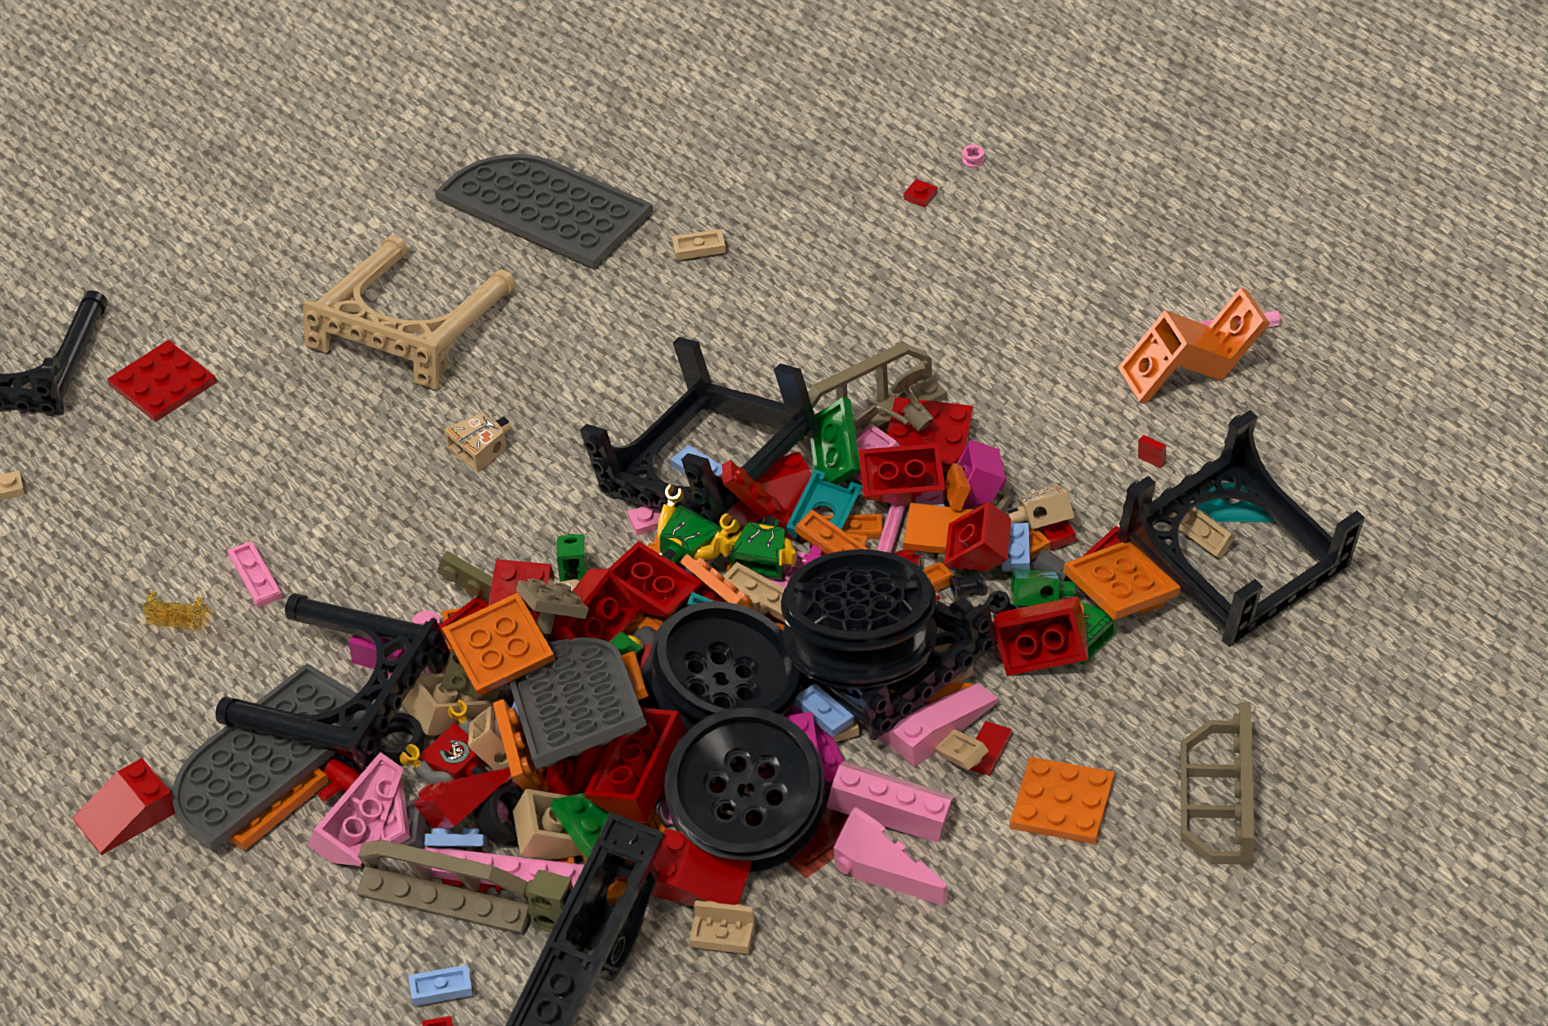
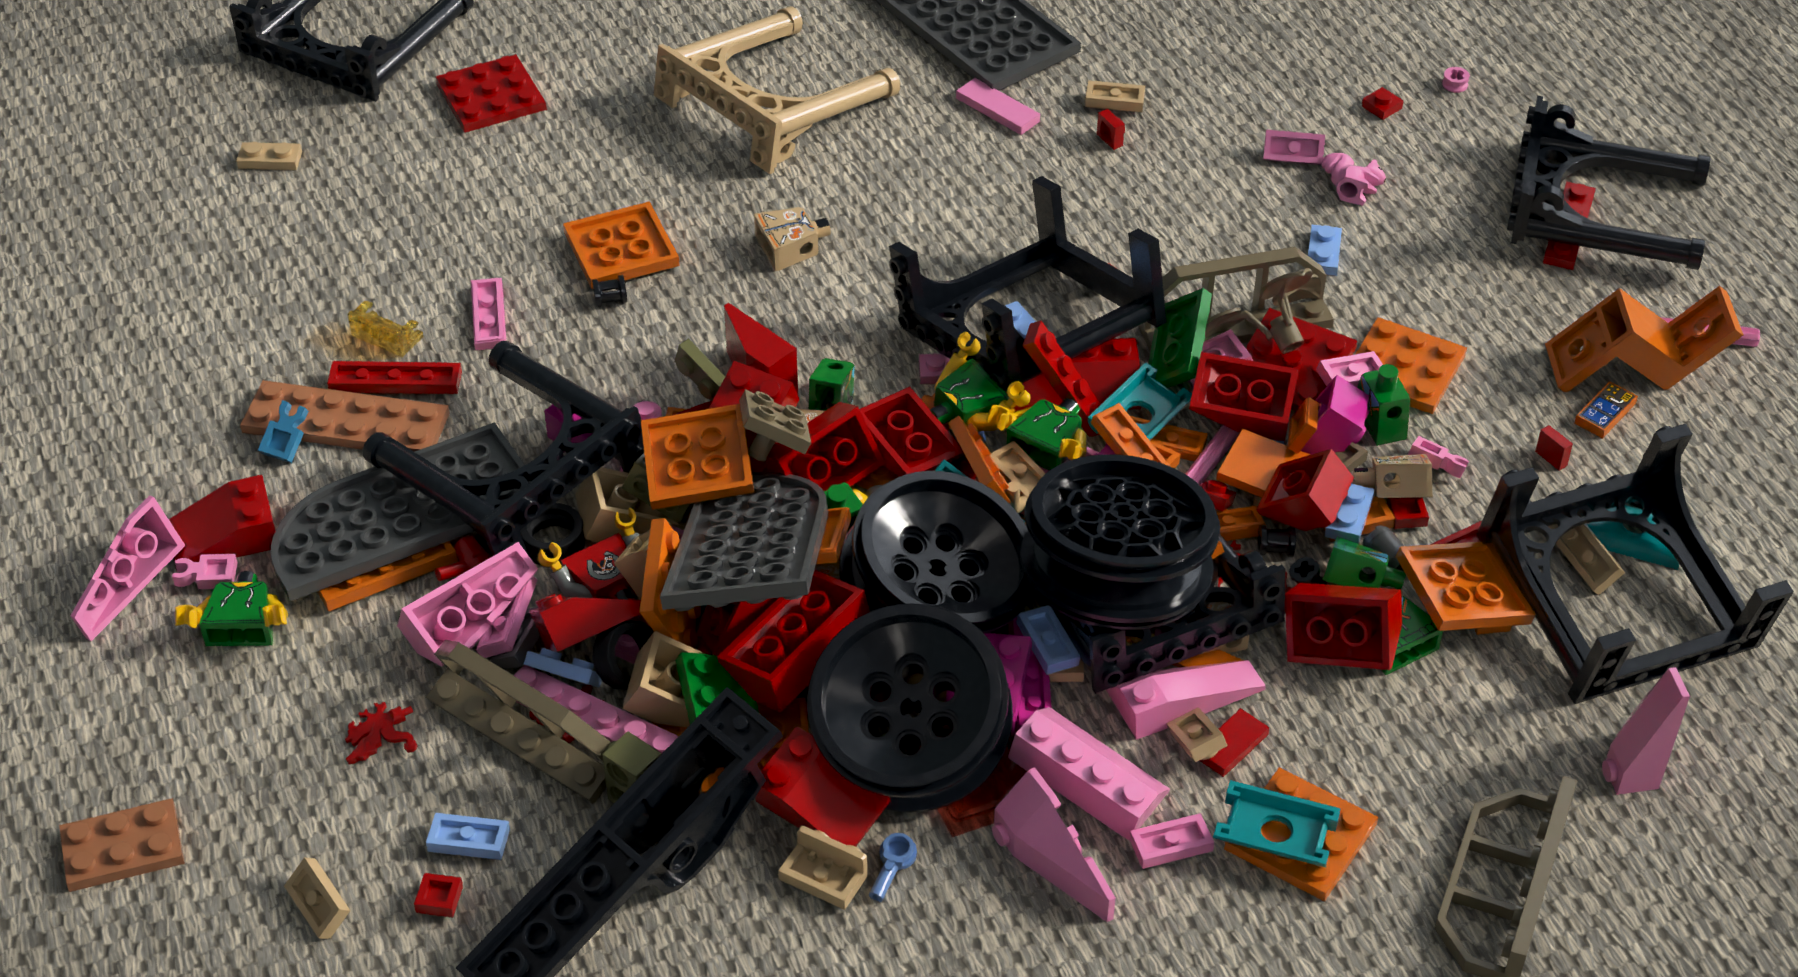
camera: 15 degrees right, 0 degrees up
(67, 859) = (133, 559): none -> bright pink wedge
(133, 847) = (207, 572): none -> bright pink plate
(137, 723) = (283, 437): none -> dark azure plate
(174, 694) = (347, 417): none -> nougat plate
(175, 872) = (236, 613): none -> green torso
(204, 649) = (395, 377): none -> red plate
(327, 927) = (368, 734): none -> red piece
(340, 485) = (621, 243): none -> orange plate
(358, 527) = (599, 286): none -> black bush
(492, 541) = (758, 346): none -> red slope
(603, 278) = (998, 106): none -> bright pink tile
(706, 275) = (1110, 129): none -> red plate
(770, 902) = (896, 853): none -> medium blue plate
(863, 251) = (1294, 147): none -> bright pink plate
(918, 332) = (1325, 247): none -> light blue plate
(919, 267) = (1353, 180): none -> bright pink animal
(970, 833) = (1171, 841): none -> bright pink plate
(982, 429) = (1348, 367): none -> bright pink plate
(1015, 415) = (1423, 361): none -> orange plate
(1015, 452) = (1386, 405): none -> green torso
(1063, 788) = (1256, 806): none -> teal piece
(1078, 485) = (1439, 457): none -> bright pink plate
(1086, 258) = (1540, 206): none -> black arch
(1105, 261) = (1580, 199): none -> red plate
(1181, 409) = (1606, 409): none -> tile
(1291, 655) = (1647, 738): none -> bright pink wedge

